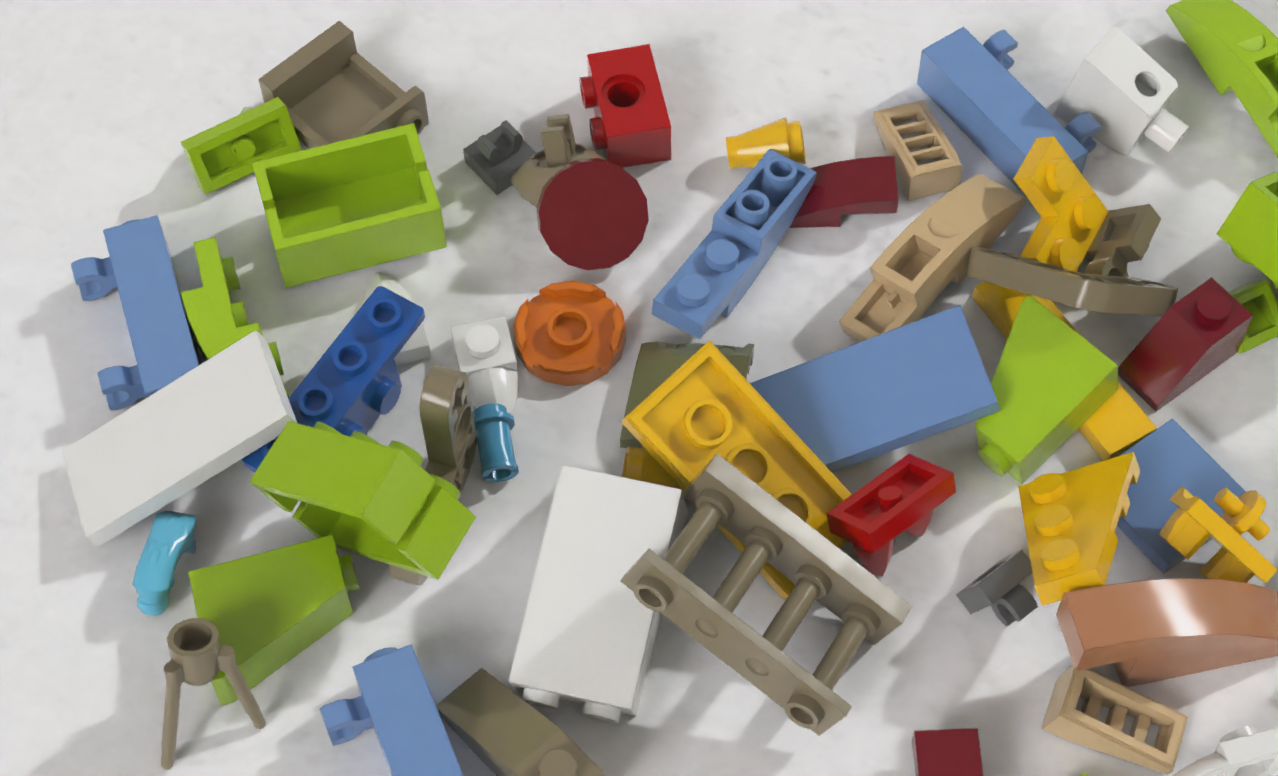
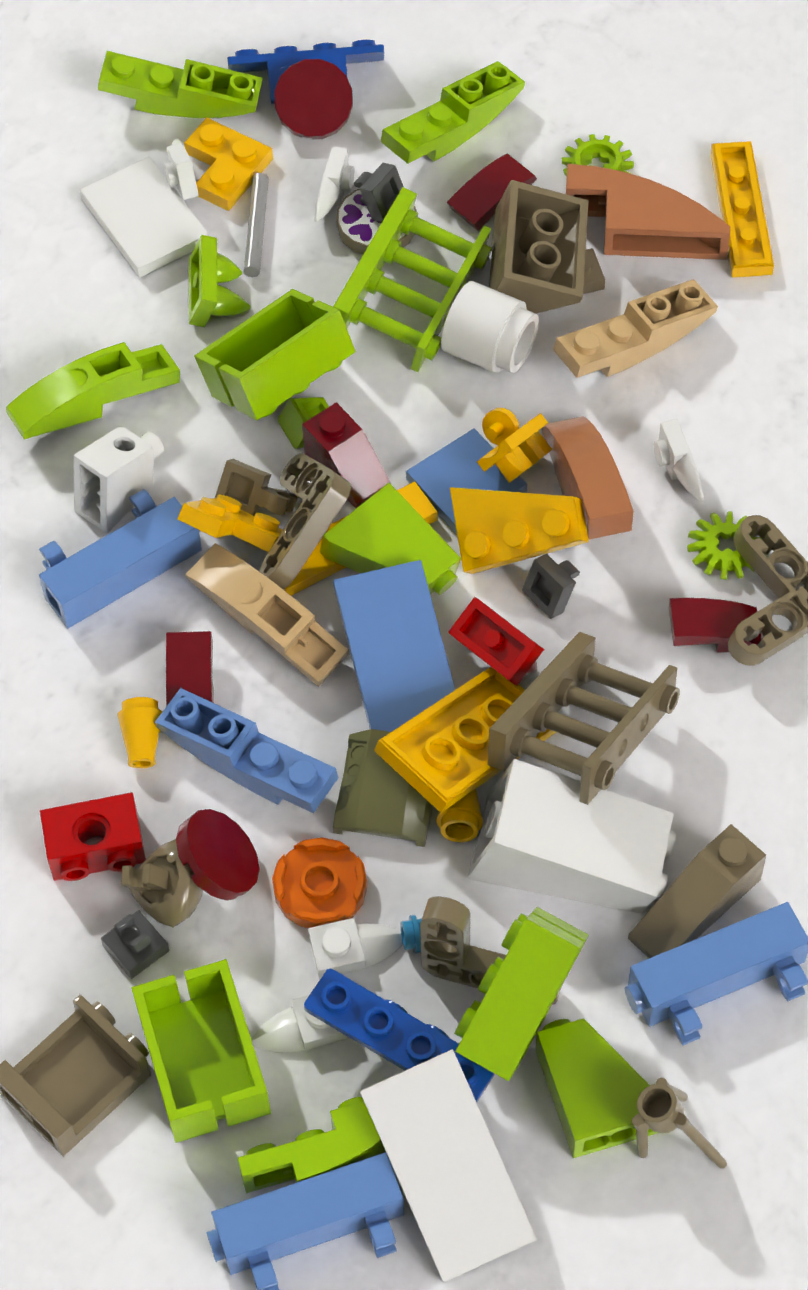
camera: 90 degrees left, 0 degrees up
(154, 575) = (541, 1174): medium azure piece -> none
(229, 148) = (107, 1148): lime tile -> none
(917, 179) = (151, 607): tan slope -> none
(1085, 729) = (650, 529): tan slope -> none

